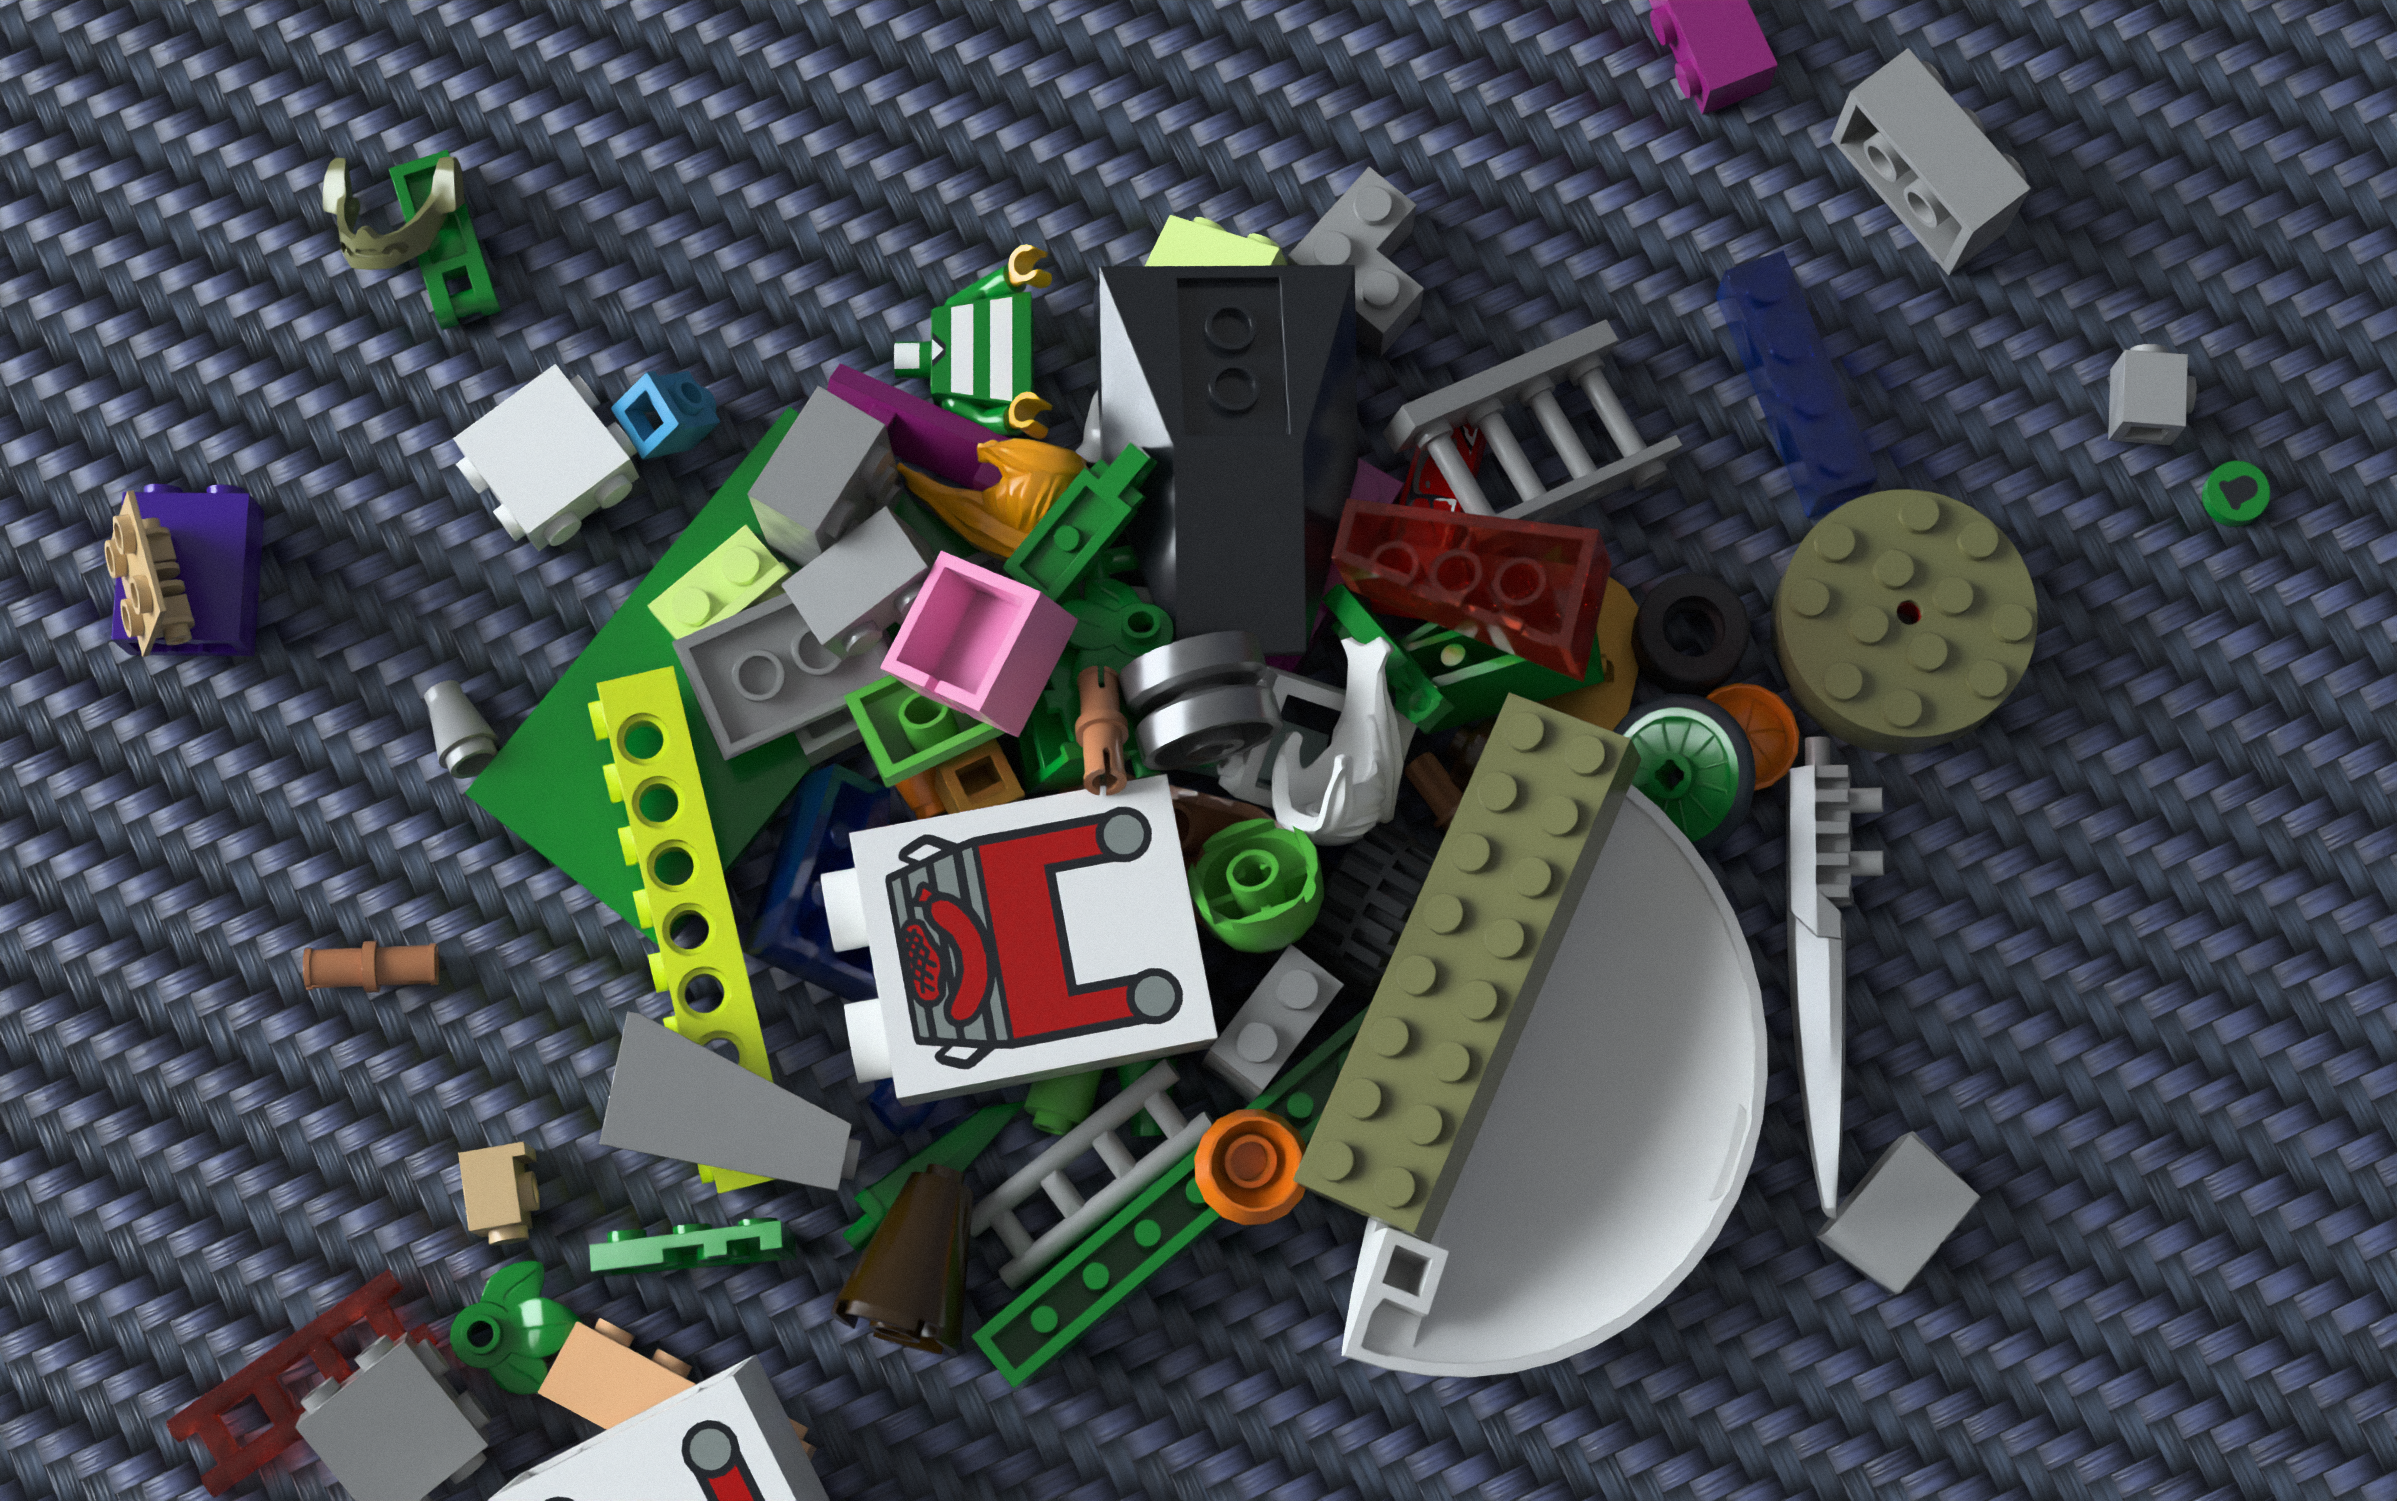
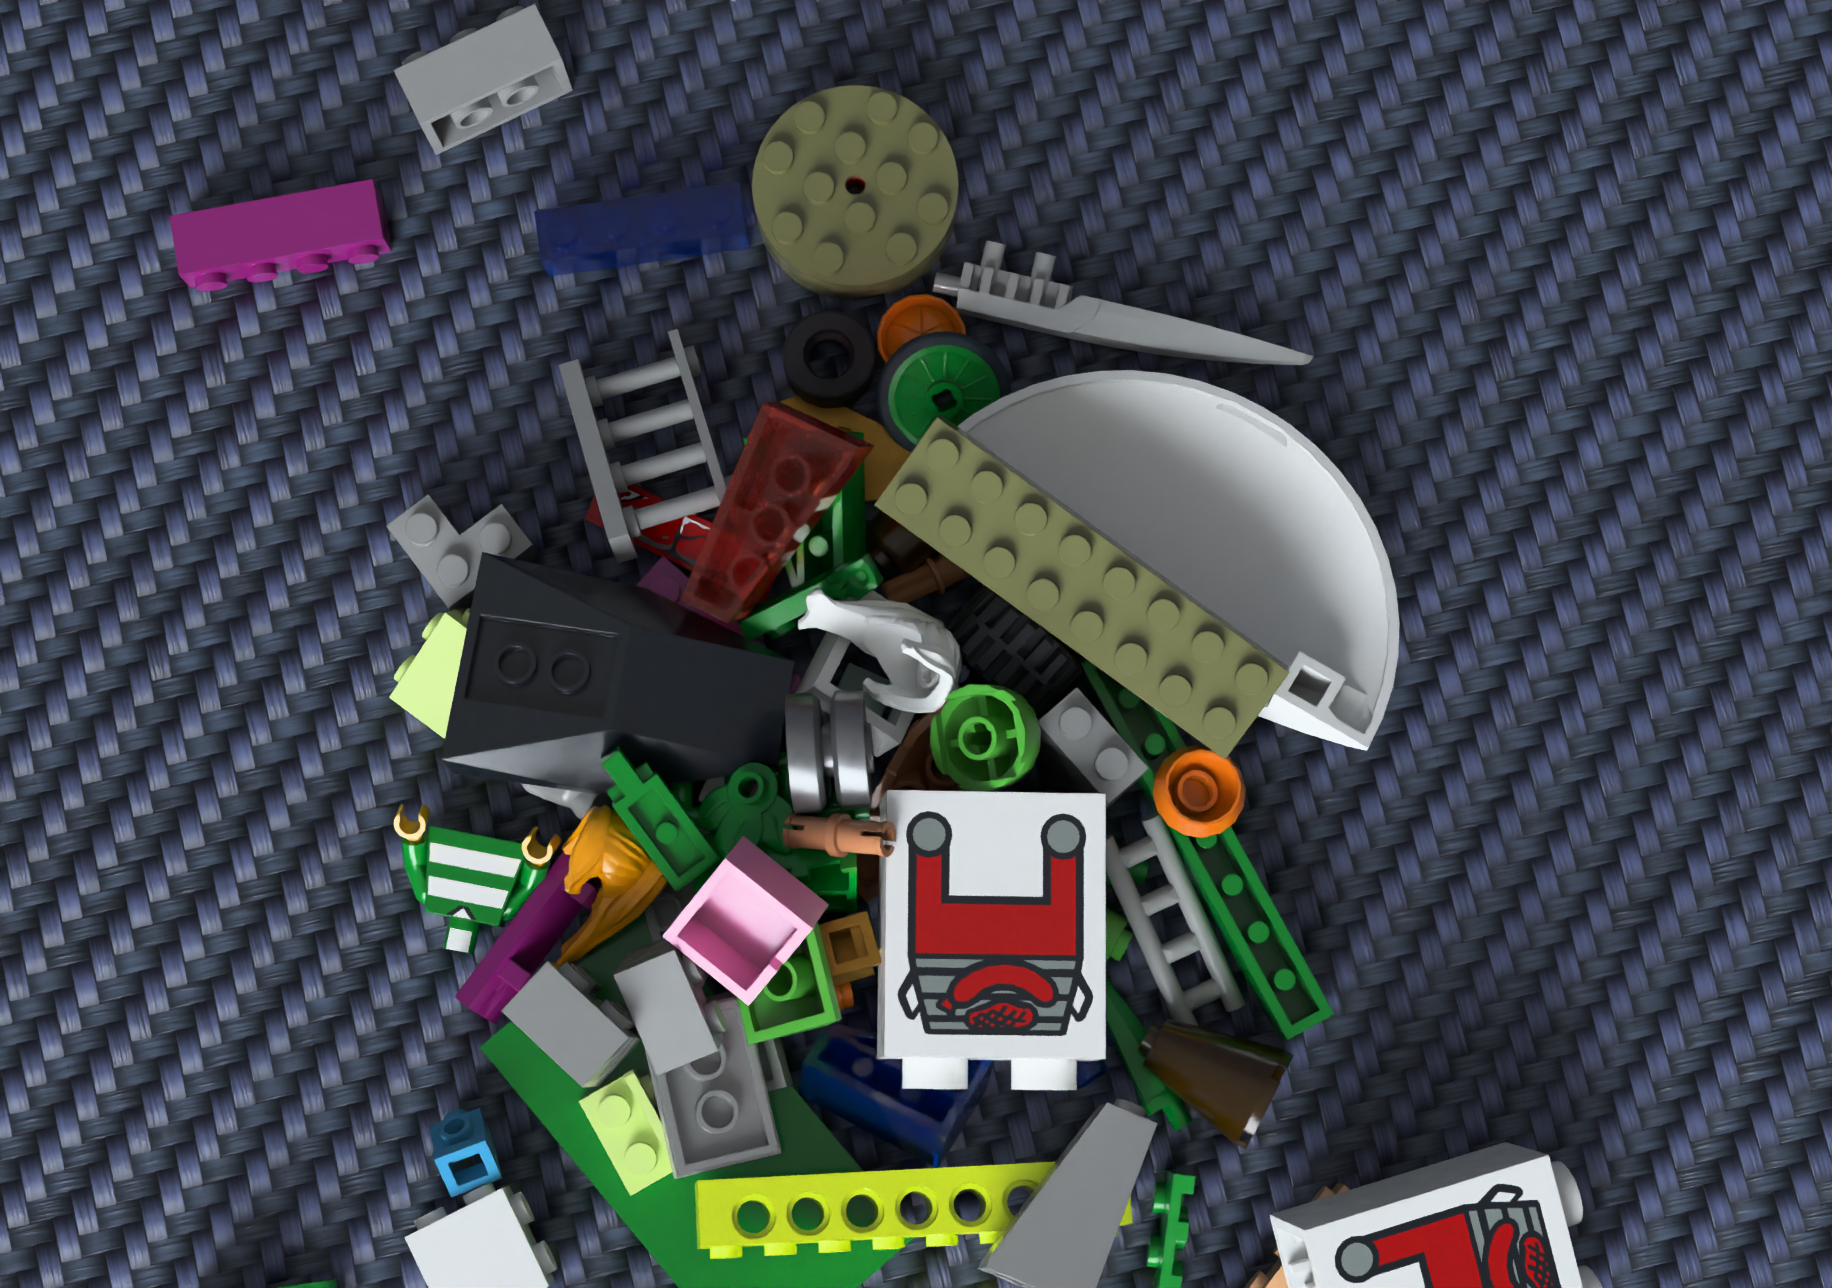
camera: 80 degrees left, 5 degrees up
(1899, 1214) = (1319, 308): light grey piece -> none

